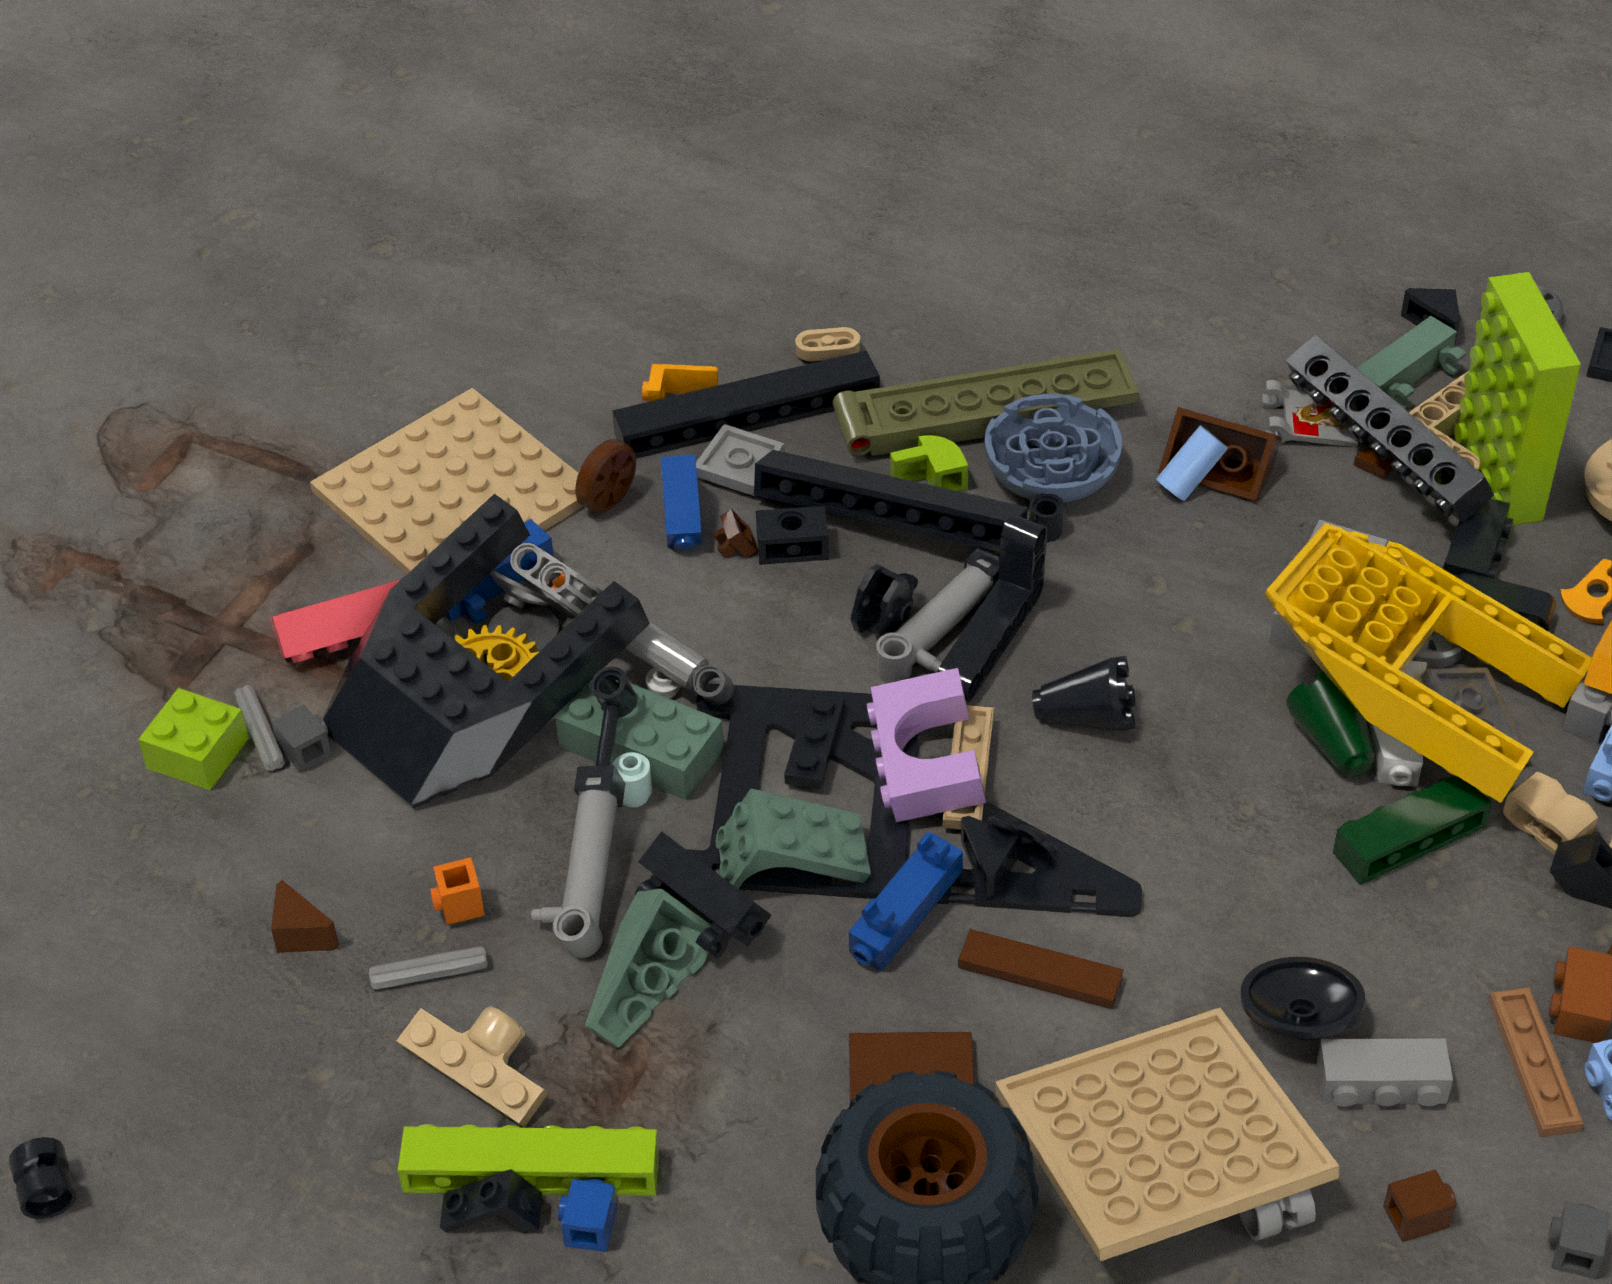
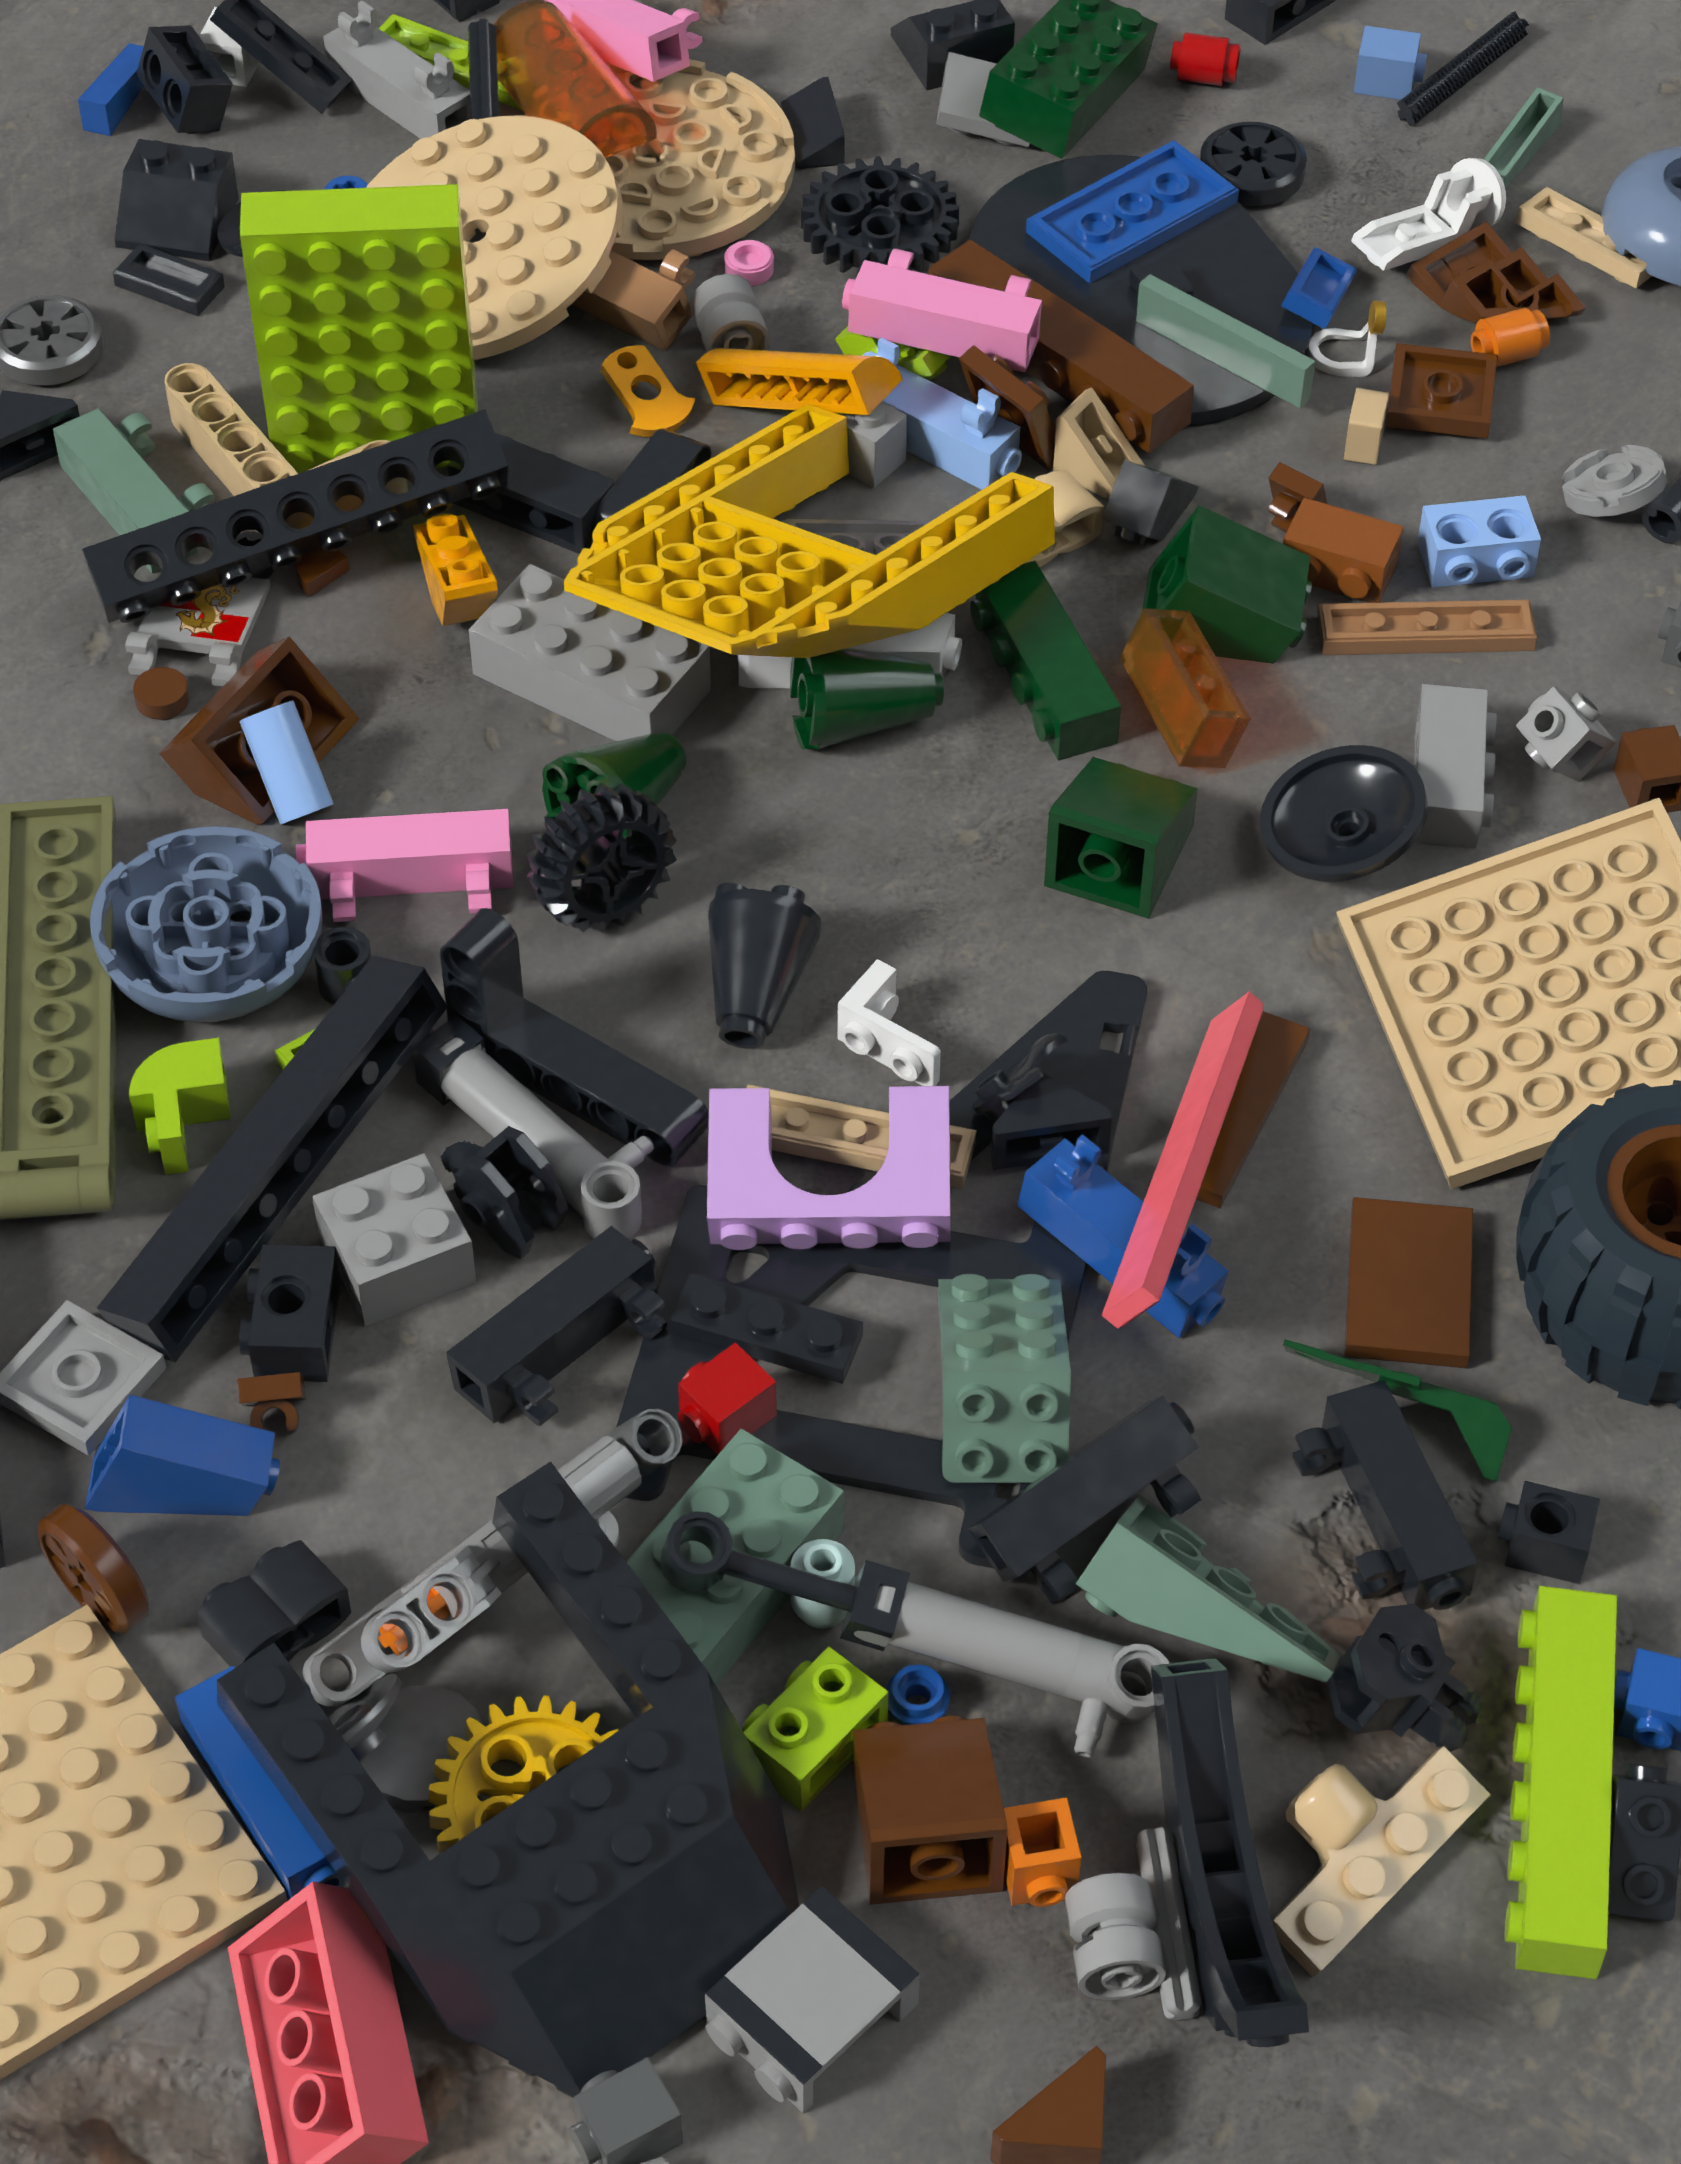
camera: 85 degrees left, 5 degrees up
(374, 803) = (807, 1996): none -> light grey panel
(409, 934) = (1115, 1938): none -> light grey wheel
(443, 976) = (1239, 1954): none -> black arch
(493, 831) = (929, 1810): none -> reddish brown slope
(538, 789) = (810, 1727): none -> lime brick
(562, 837) = (917, 1681): none -> blue plate
(585, 1064) = (1402, 1681): none -> black hinge
(597, 555) = (283, 1601): none -> black brick
(716, 1163) = (1561, 1511): none -> black brick
(729, 1062) = (1397, 1496): none -> black brick
(752, 721) = (725, 1397): none -> red brick
(800, 643) = (554, 1324): none -> black brick
(820, 1055) = (1478, 1419): none -> dark green piece
(839, 561) = (395, 1239): none -> light grey brick
(961, 914) = (1183, 1162): none -> coral tile
(1065, 758) = (867, 1028): none -> white bracket
(1141, 533) = (409, 857): none -> bright pink brick
(1141, 604) = (590, 846): none -> black gear
(1217, 614) = (641, 763): none -> dark green cone
(1246, 411) = (161, 693): none -> reddish brown tile
(1256, 874) = (1117, 835): none -> dark green slope
(1379, 511) = (455, 569): none -> light orange slope
(1400, 900) = (1184, 688): none -> clear orange brick
(1433, 1139) = (1565, 733): none -> light grey brick
(1510, 922) = (1235, 584): none -> dark green slope

